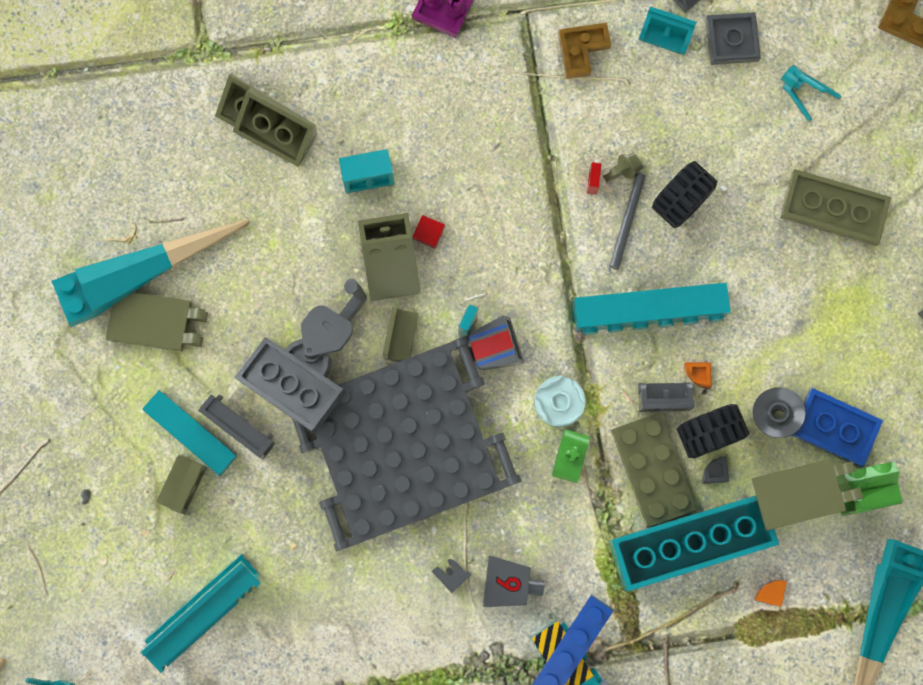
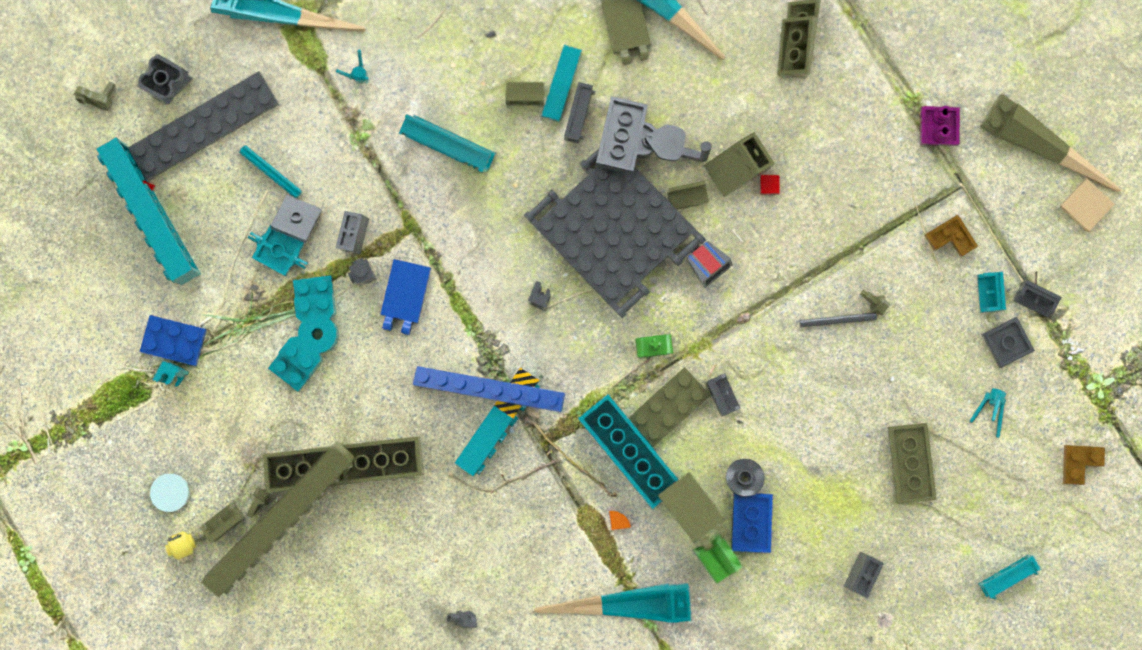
camera: 70 degrees right, 5 degrees up
(366, 171) = (794, 123): teal hinge -> none
(468, 321) = (716, 236): teal tile -> none
(509, 584) = (550, 338): dark grey torso -> none
(559, 401) = (689, 323): light aqua tile -> none
(594, 178) = (858, 283): red tile -> none
(651, 307) = (782, 360): teal brick -> none
(684, 194) = (872, 350): black tyre -> none
(699, 373) = (750, 413): orange tile -> none
(712, 431) = (711, 434): black tyre -> none
(716, 471) = (685, 451): dark grey tile -> none

